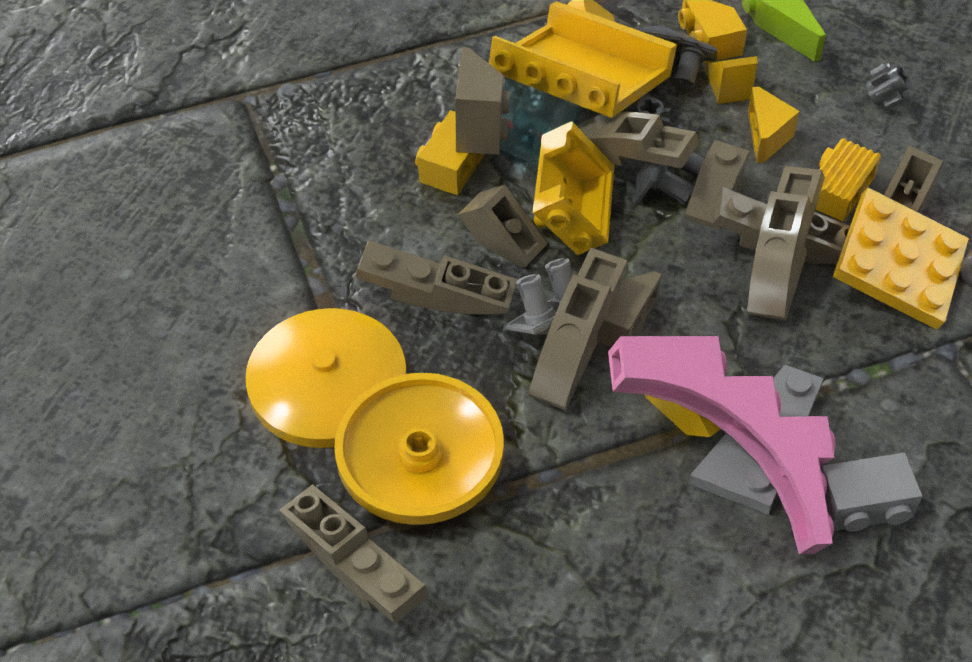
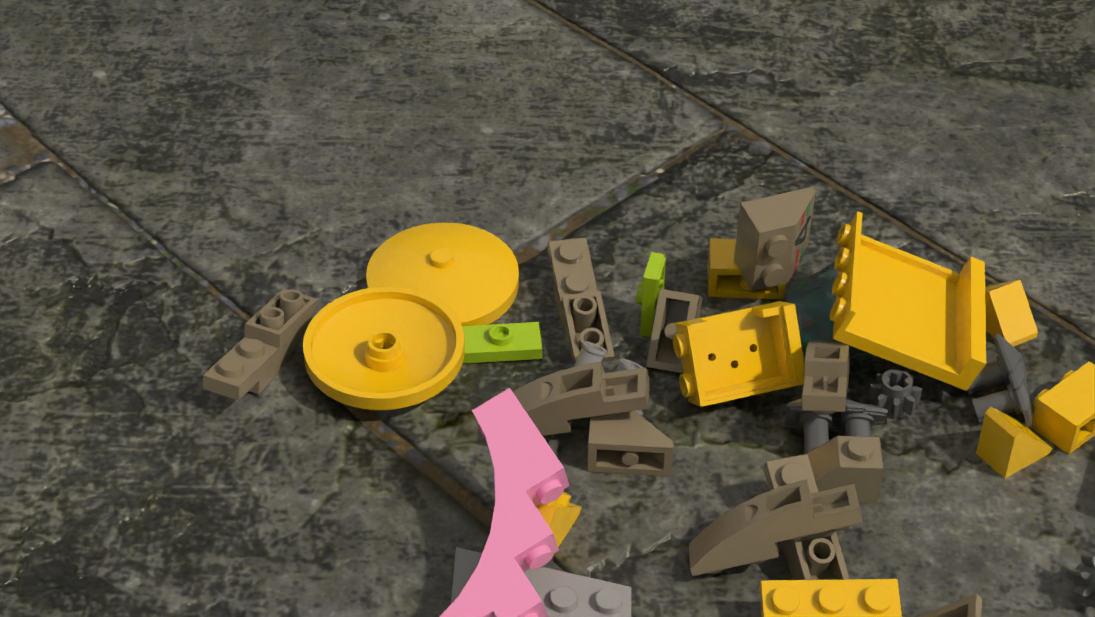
camera: 65 degrees right, 10 degrees down
(445, 350) = (502, 342): none -> lime plate
(467, 220) = (648, 291): none -> lime plate
(770, 123) = (954, 492): yellow slope -> none
(847, 175) = (926, 572): yellow brick -> none

